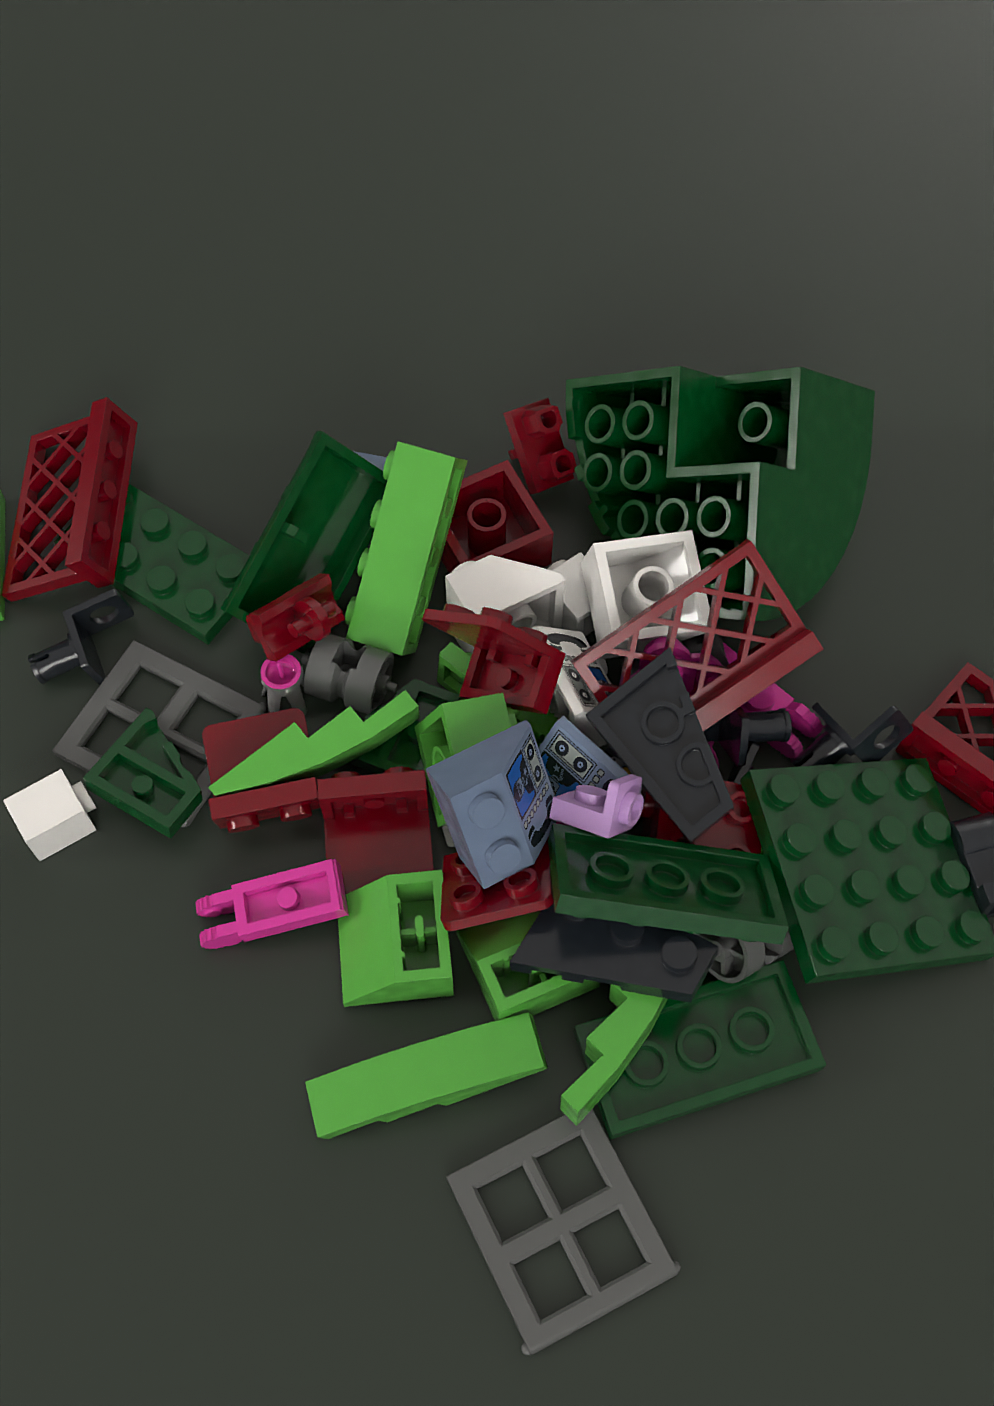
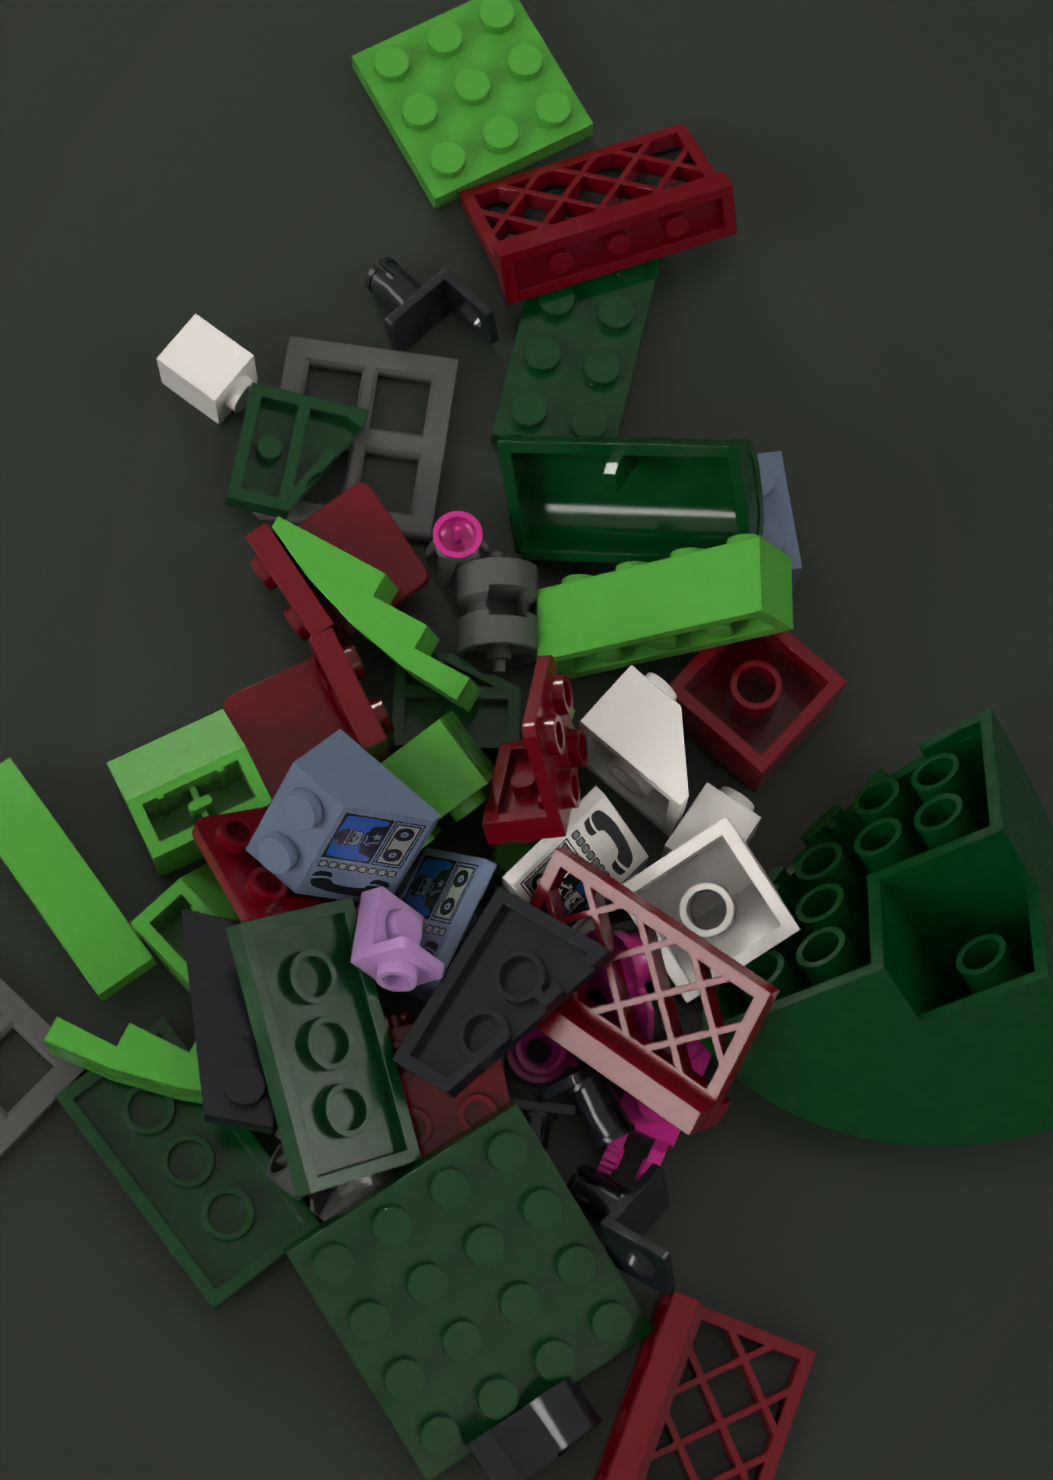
camera: 65 degrees right, 10 degrees up
(275, 904) = (191, 649): dark pink hinge -> none
(296, 618) = (527, 522): dark red hips -> none
(539, 445) = (905, 714): dark red hips -> none

